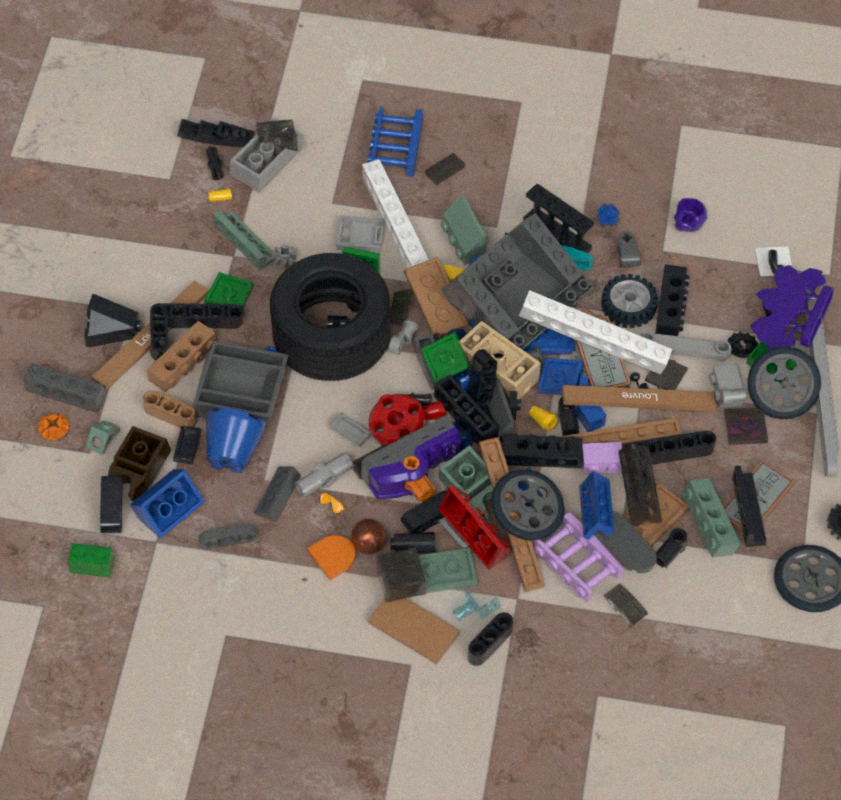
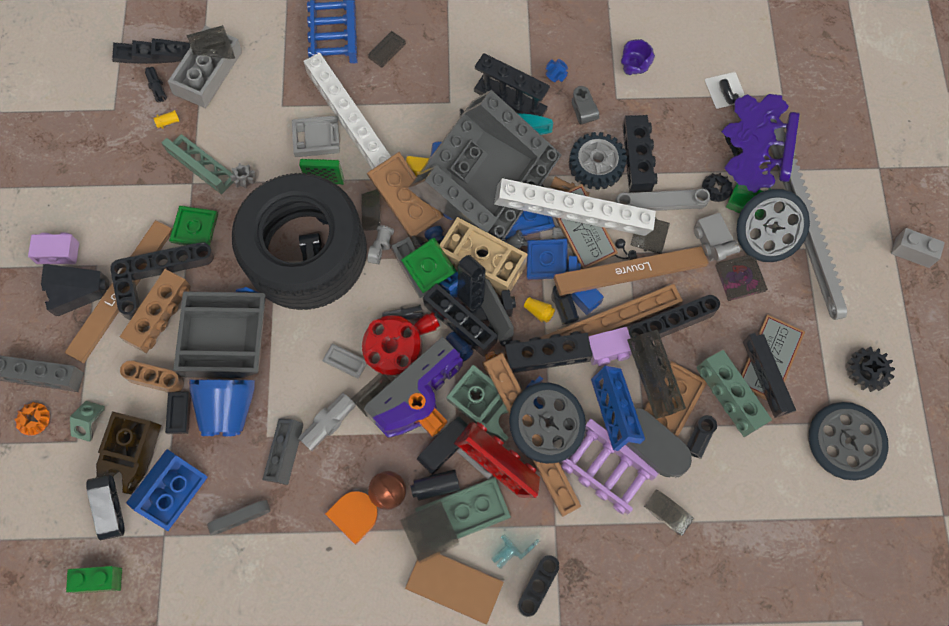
camera: 10 degrees left, 15 degrees up
(95, 283) = (53, 249): none -> lavender brick
(337, 506) = (348, 455): light orange piece -> none
(464, 230) = (419, 115): sand green slope -> none

